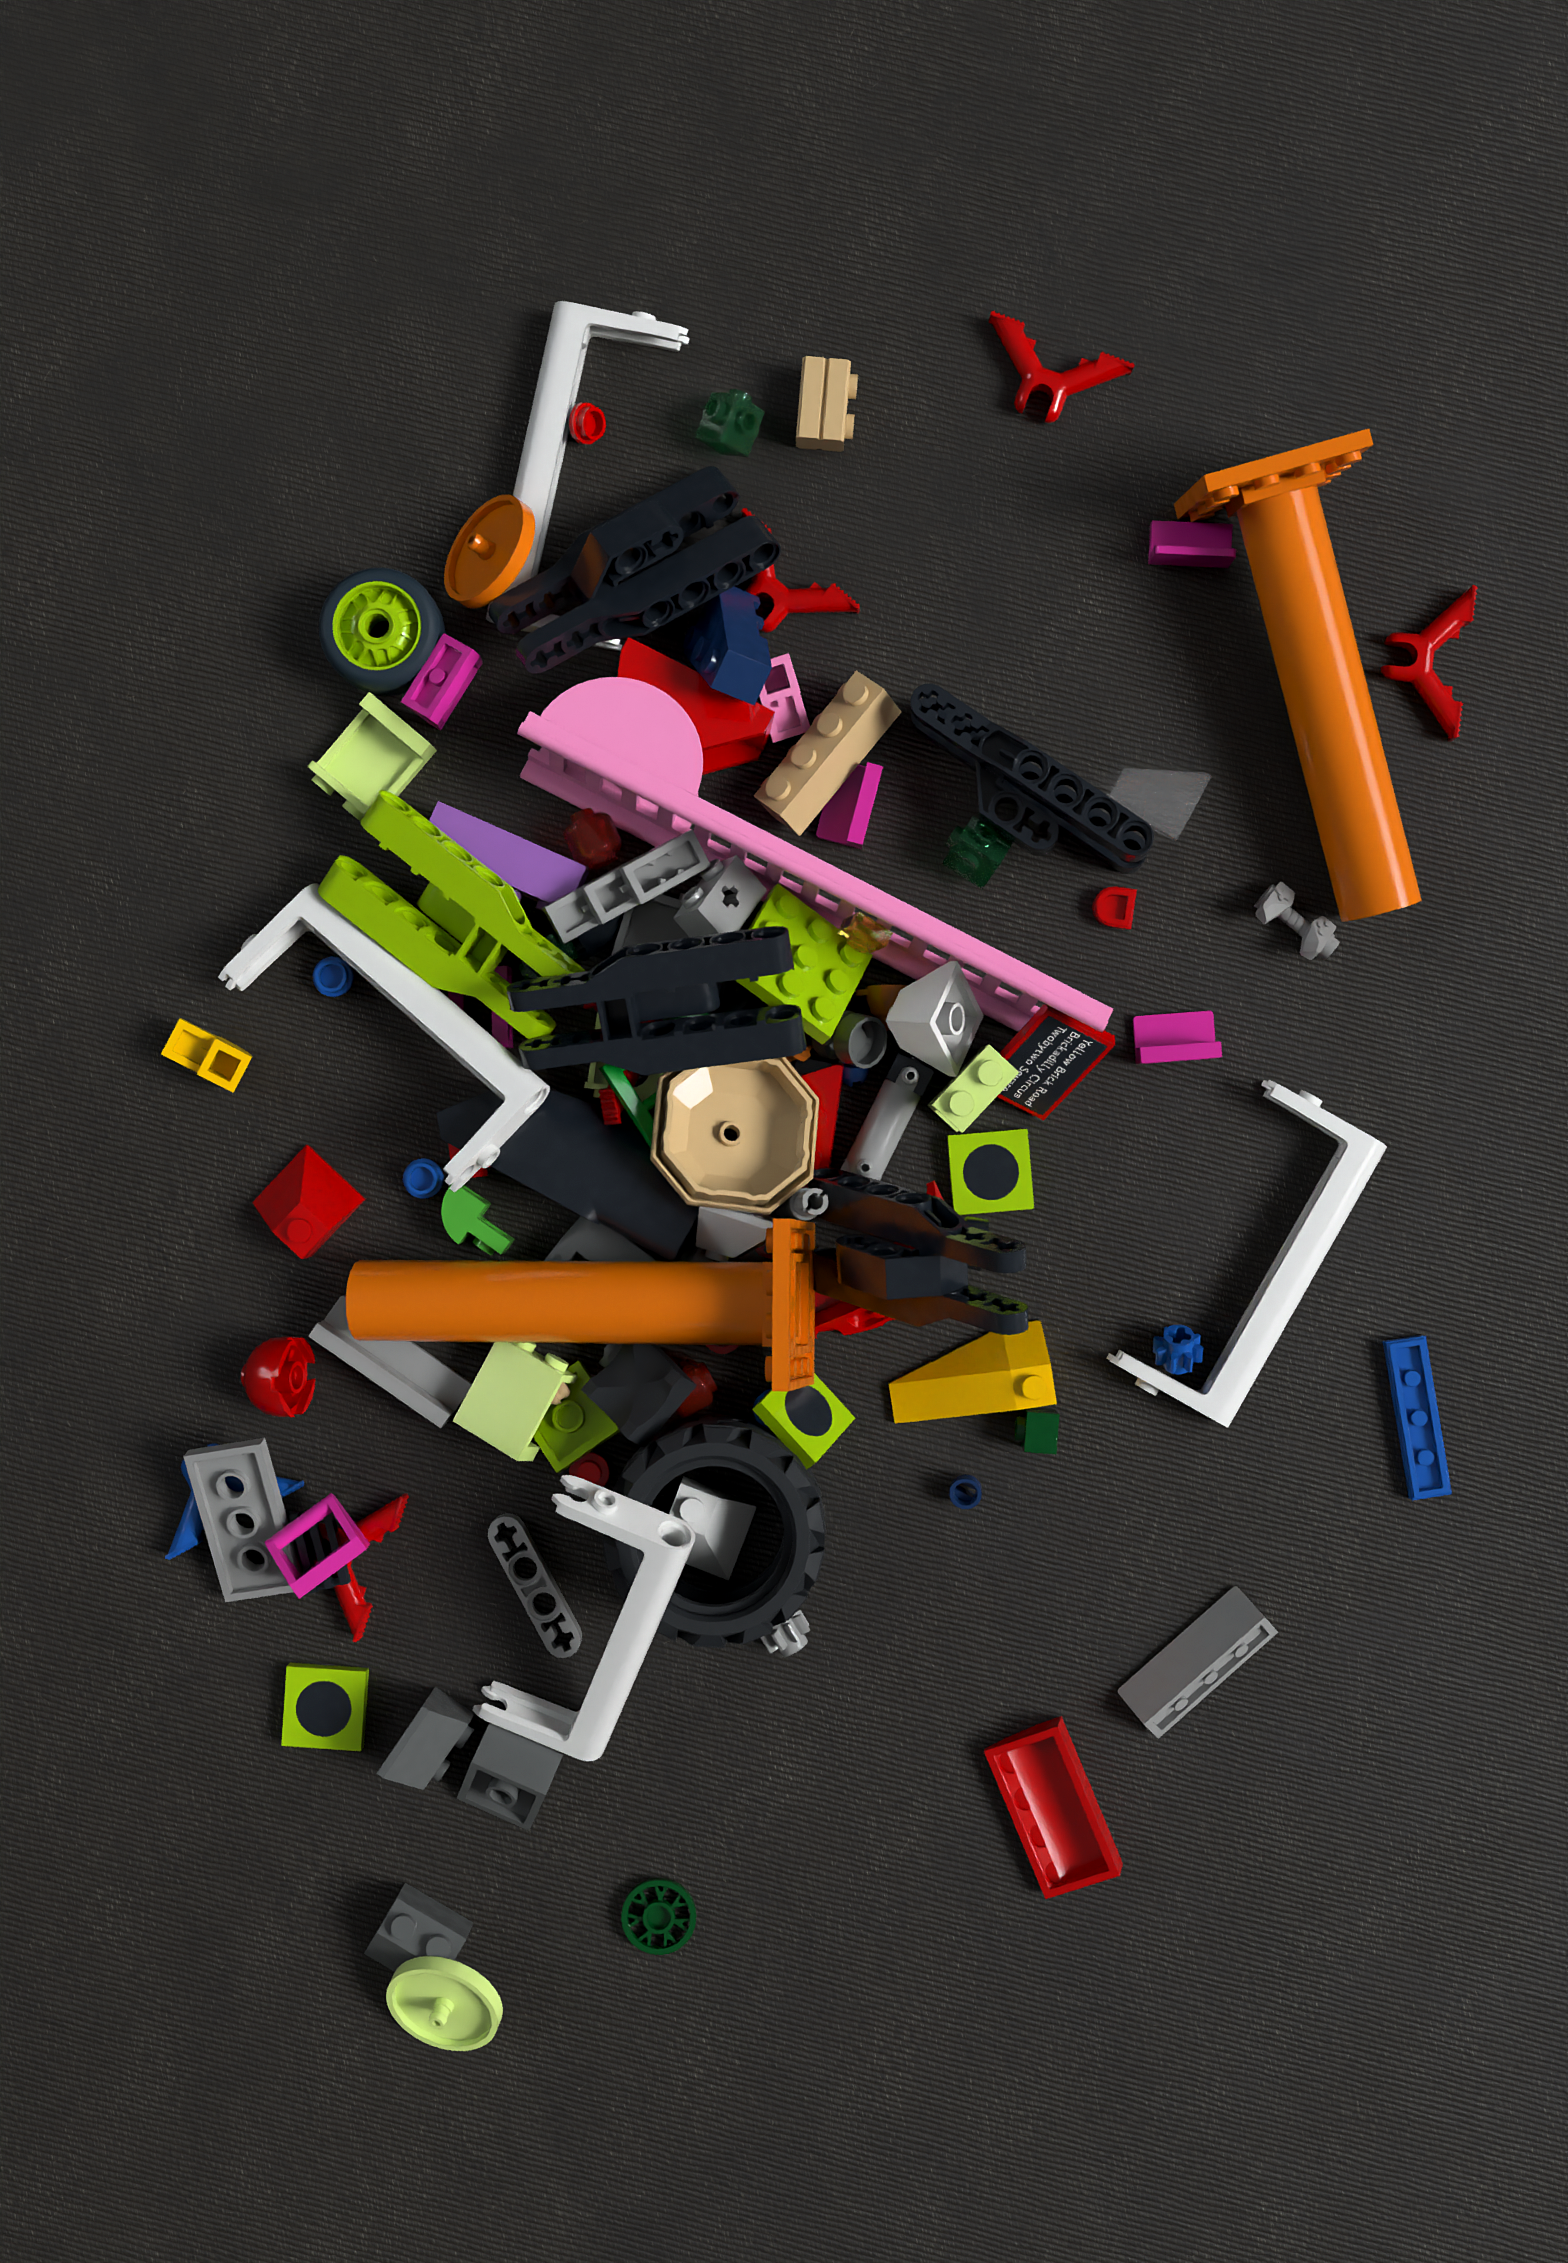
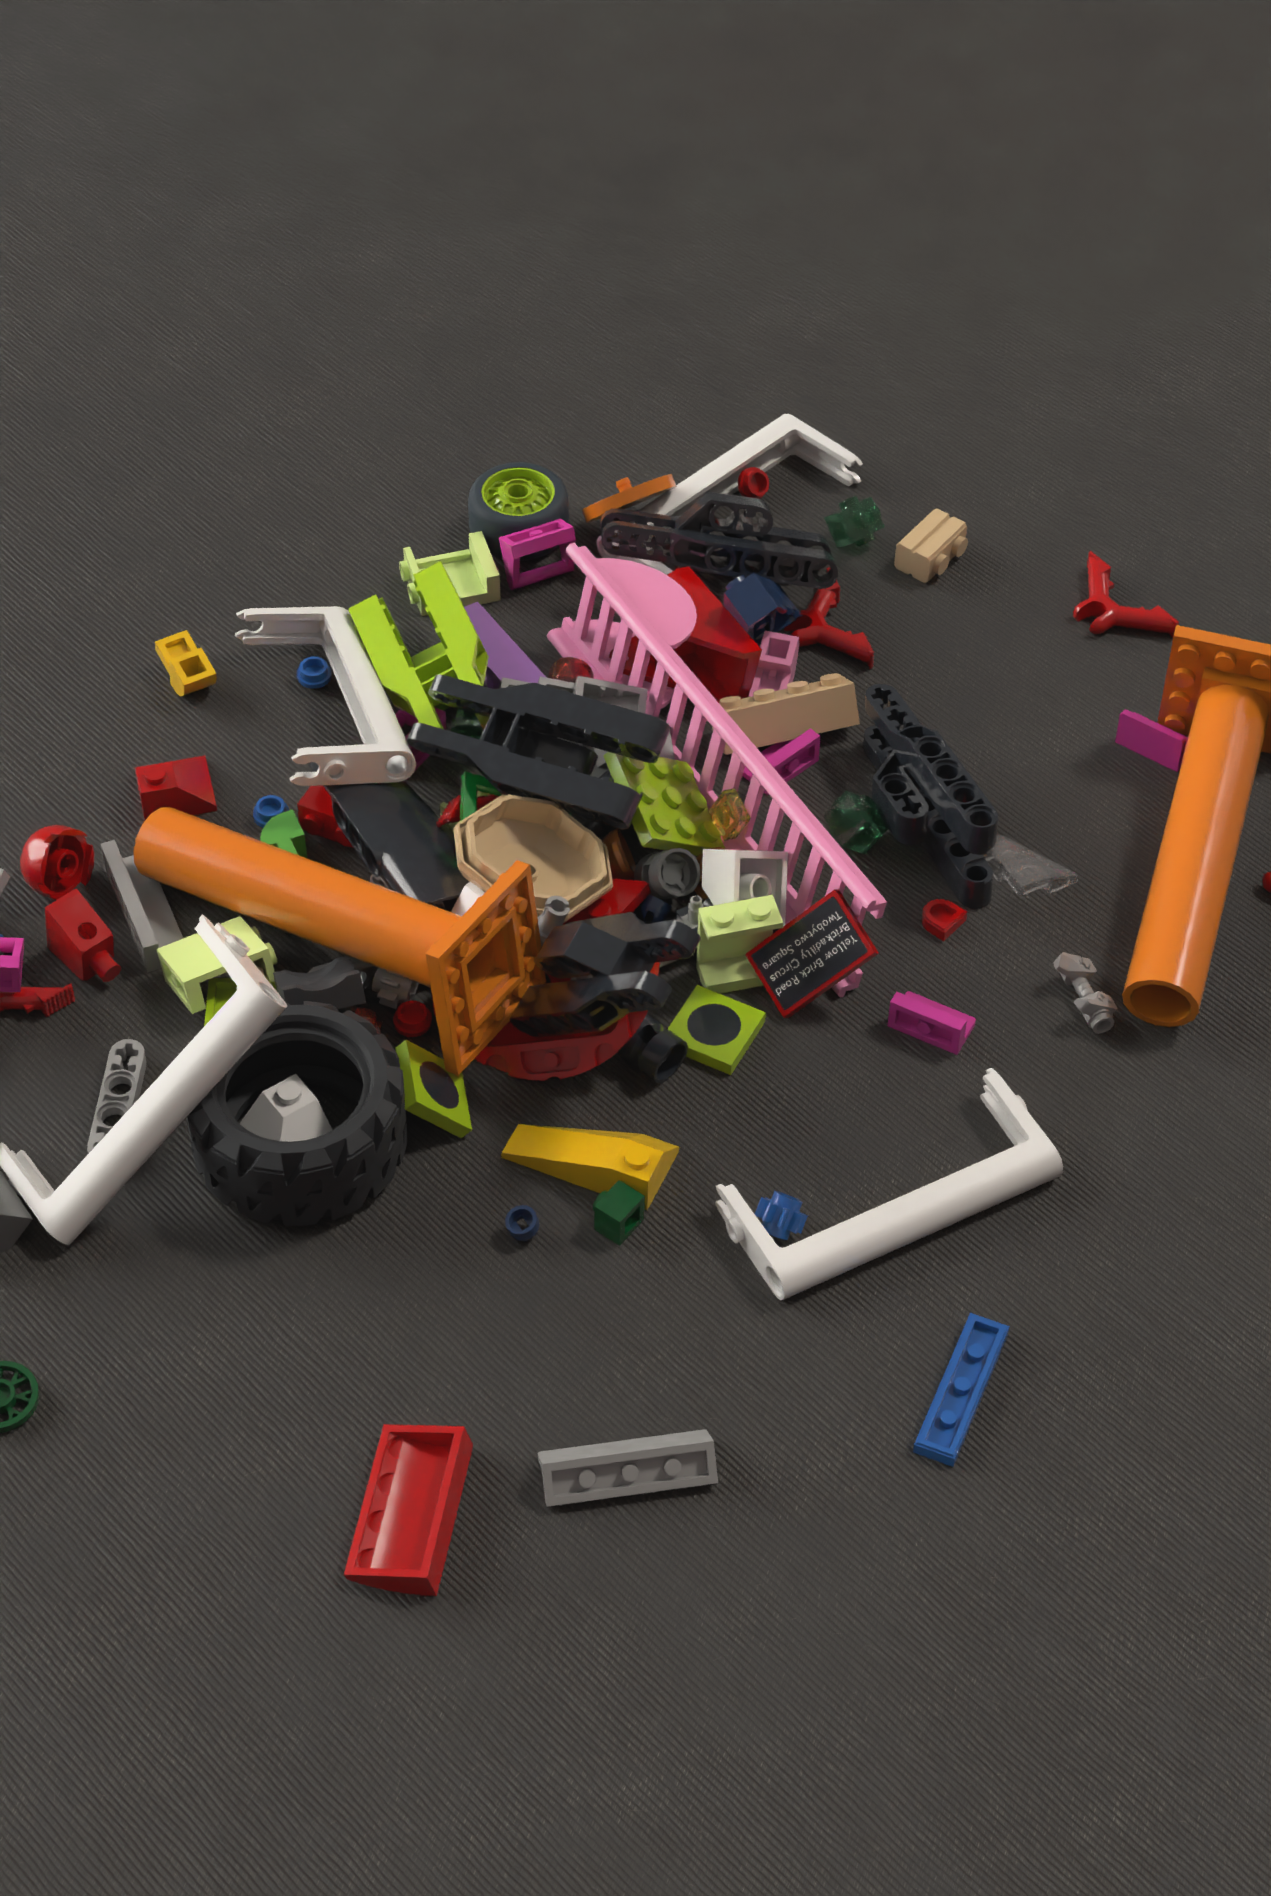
camera: 30 degrees right, 40 degrees down
(361, 1448) = (80, 938): none -> red torso
(788, 1636) = (289, 1235): light grey gear -> none

